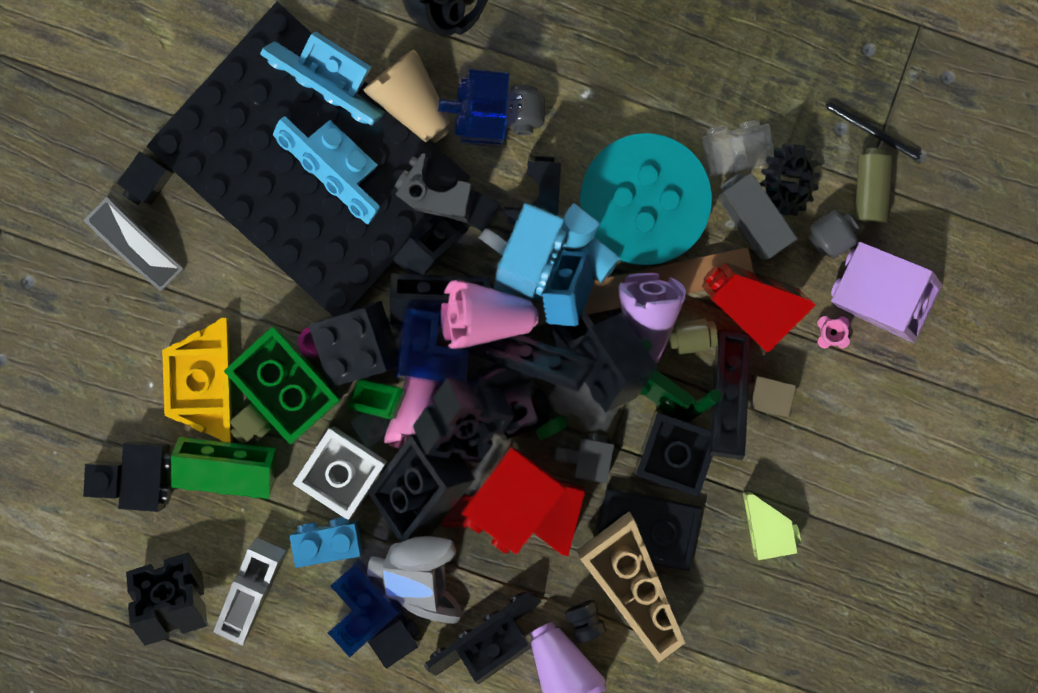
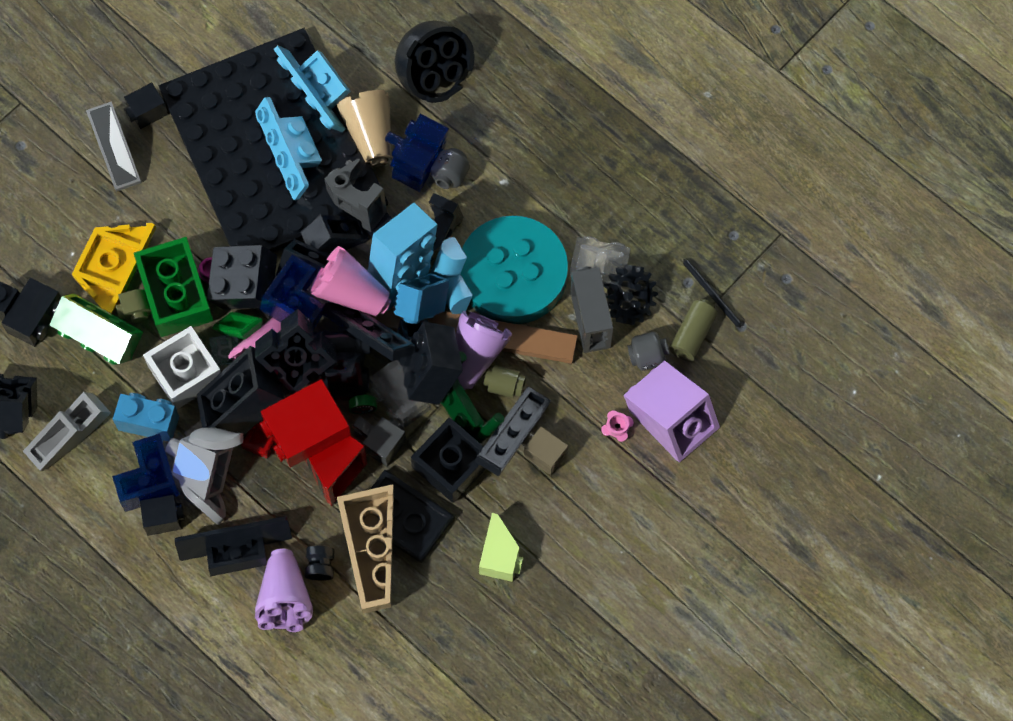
camera: 25 degrees right, 20 degrees down
(757, 303) = (563, 368): red slope -> none

